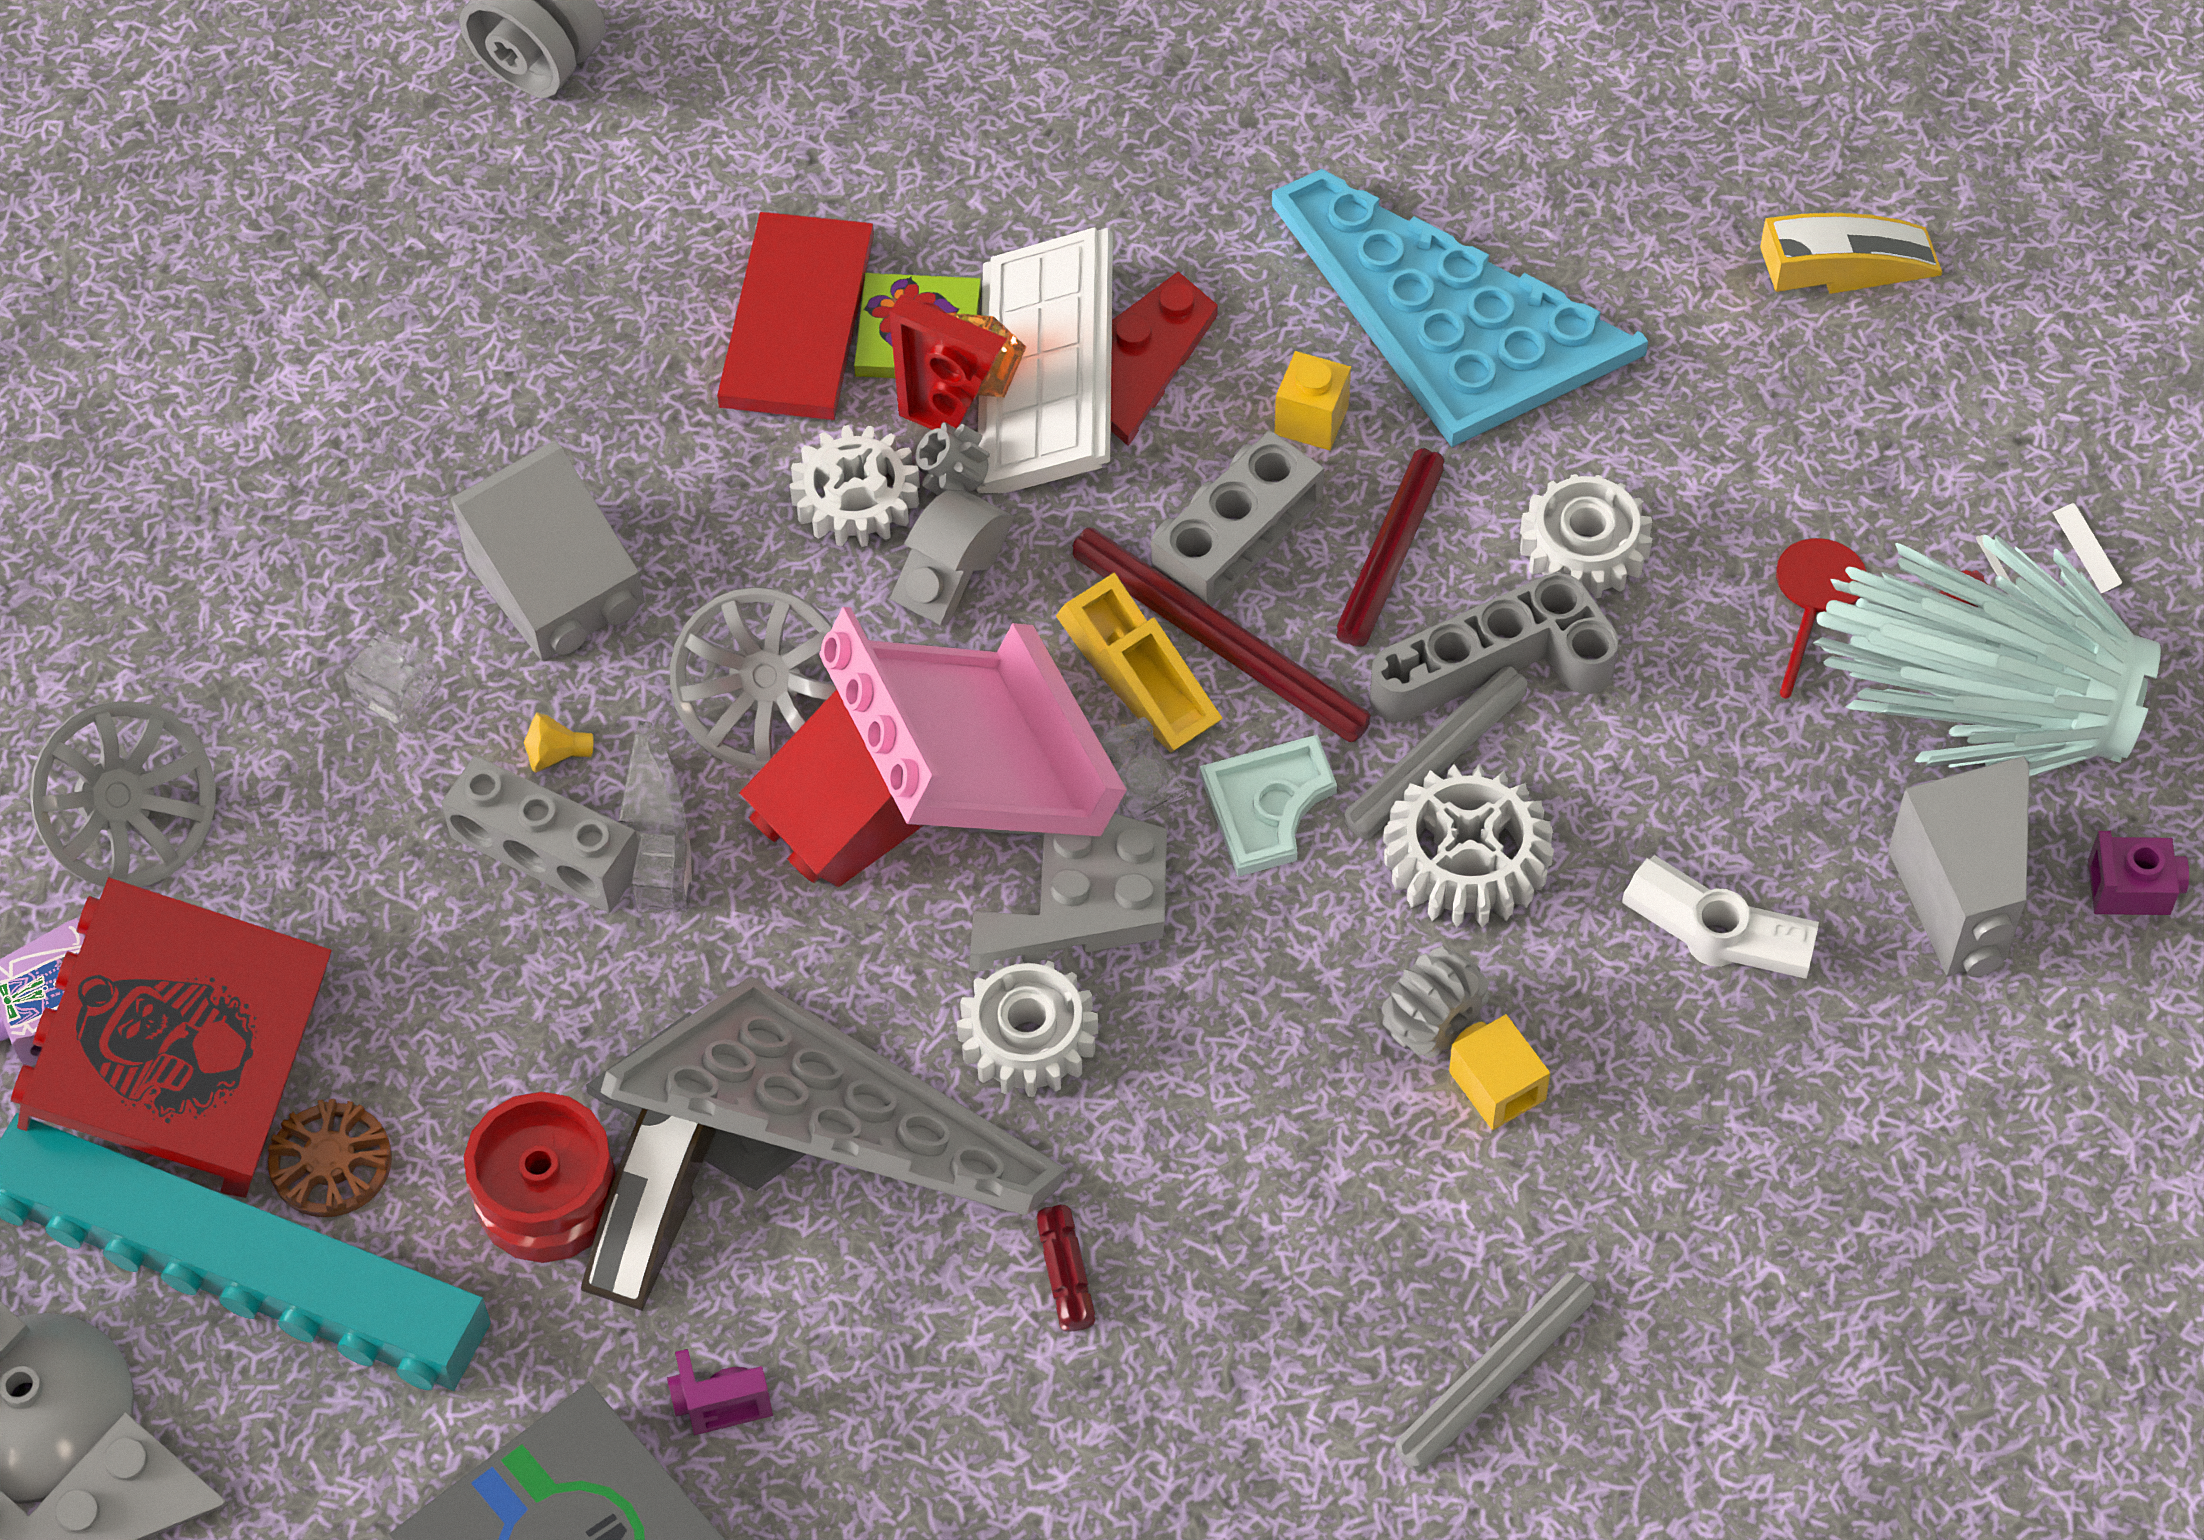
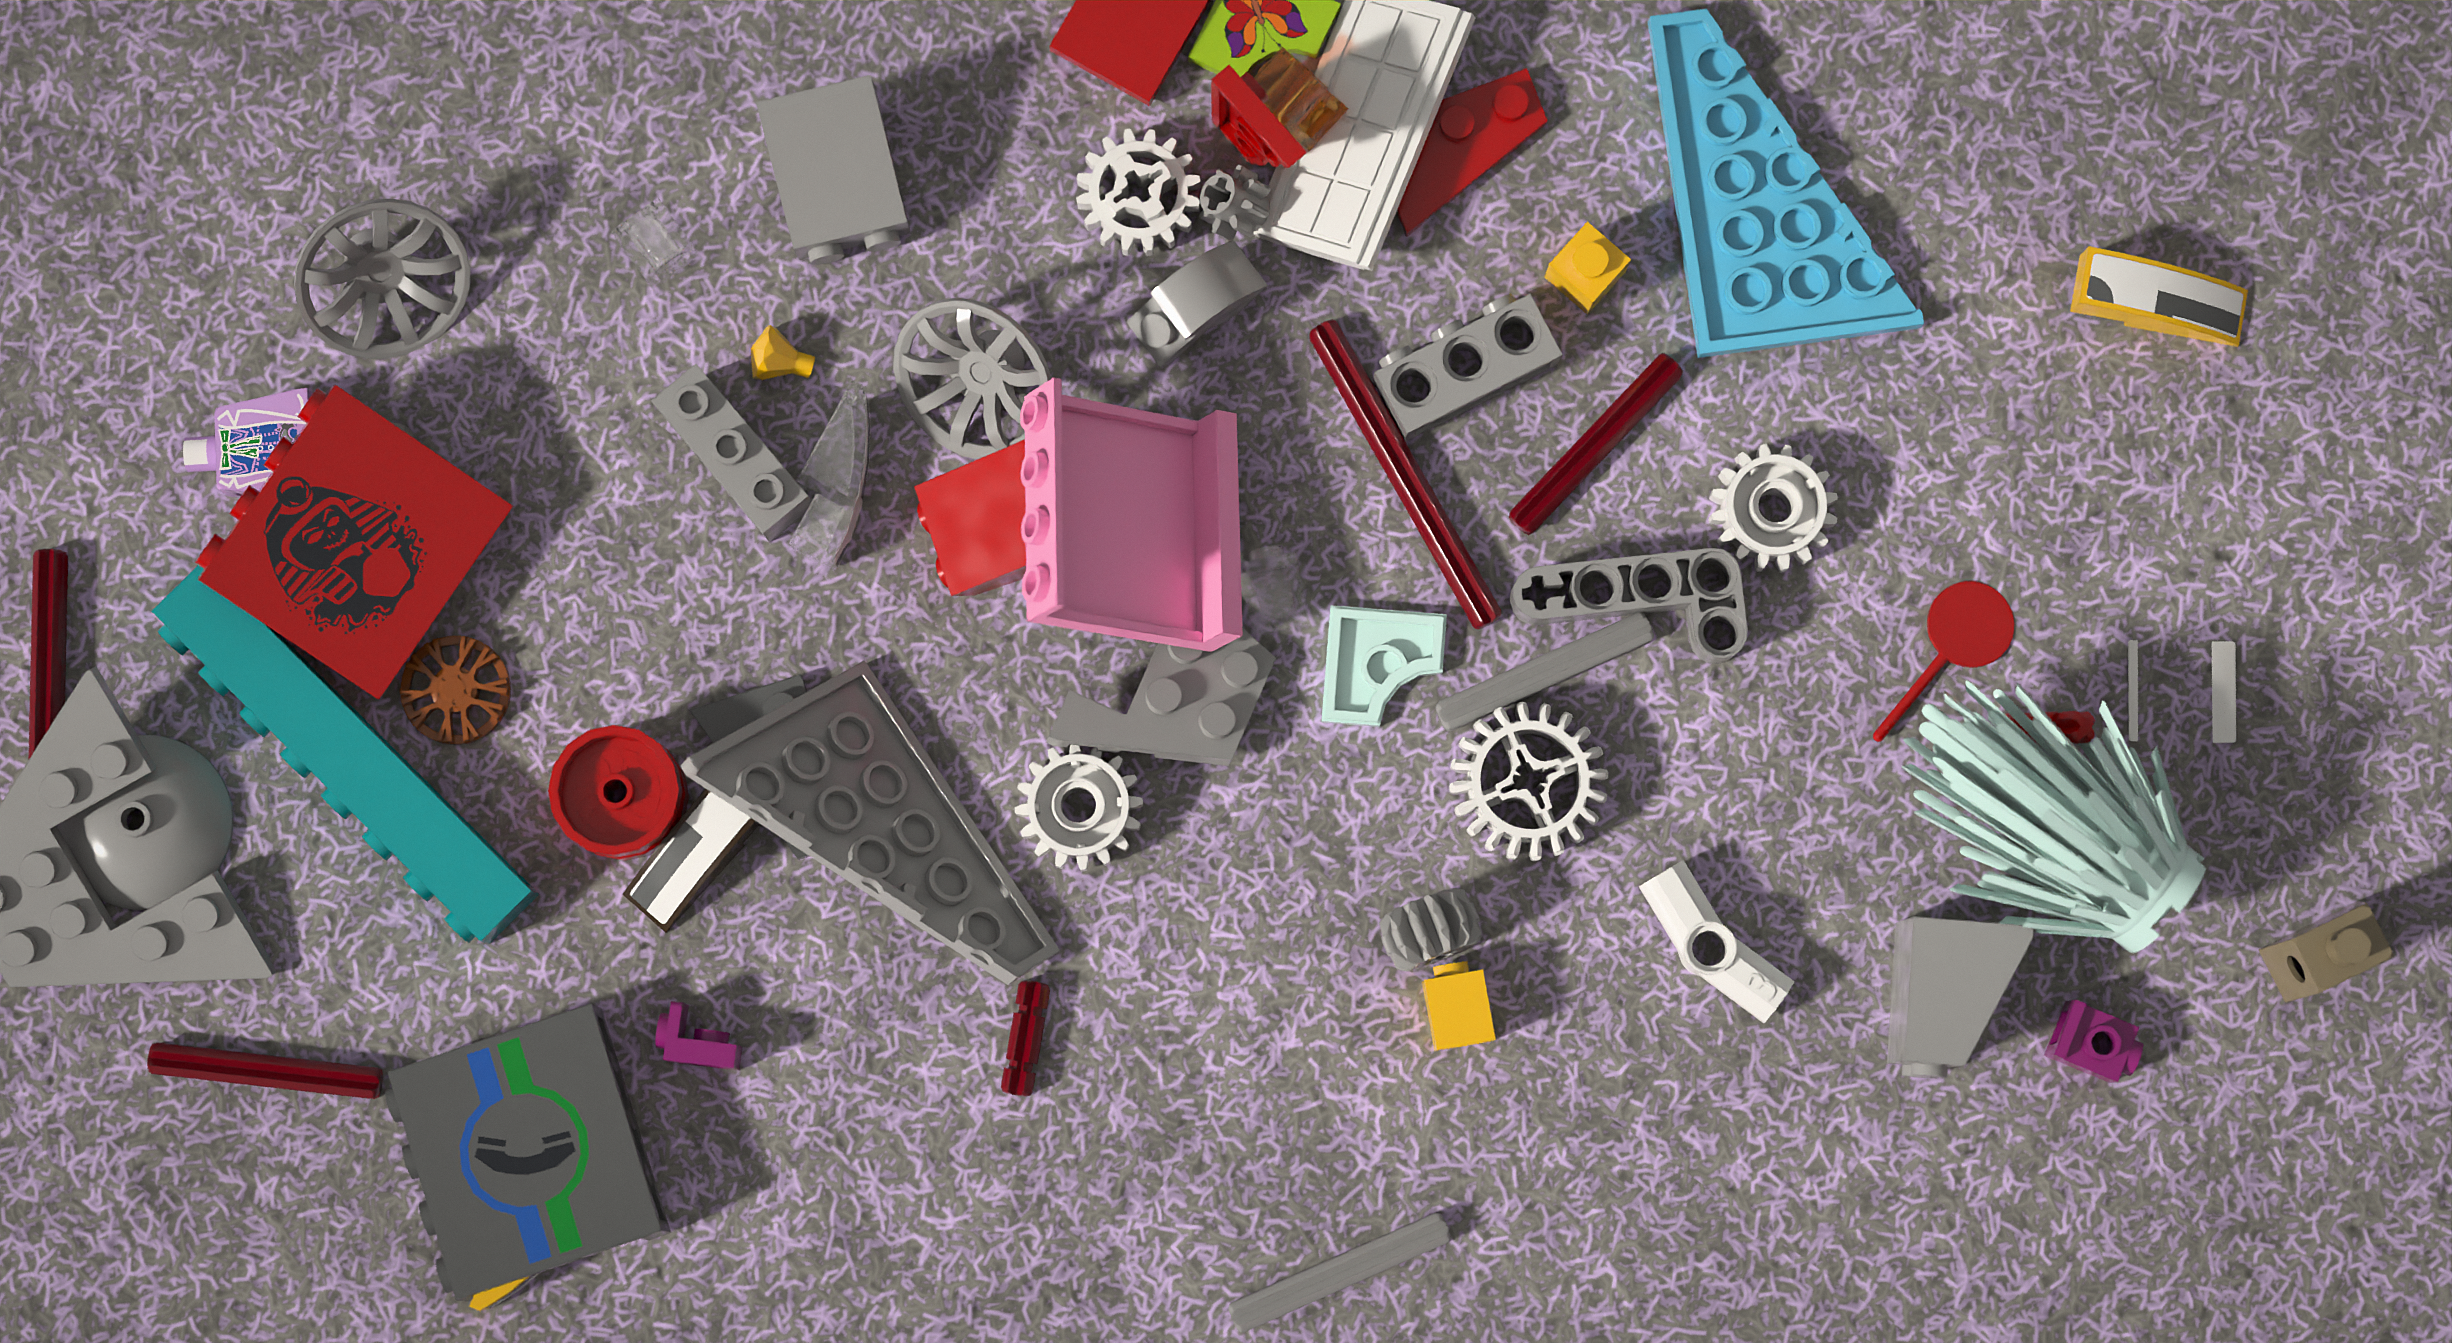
camera: 20 degrees right, 25 degrees up
(1138, 662) = (1318, 483): yellow slope -> none

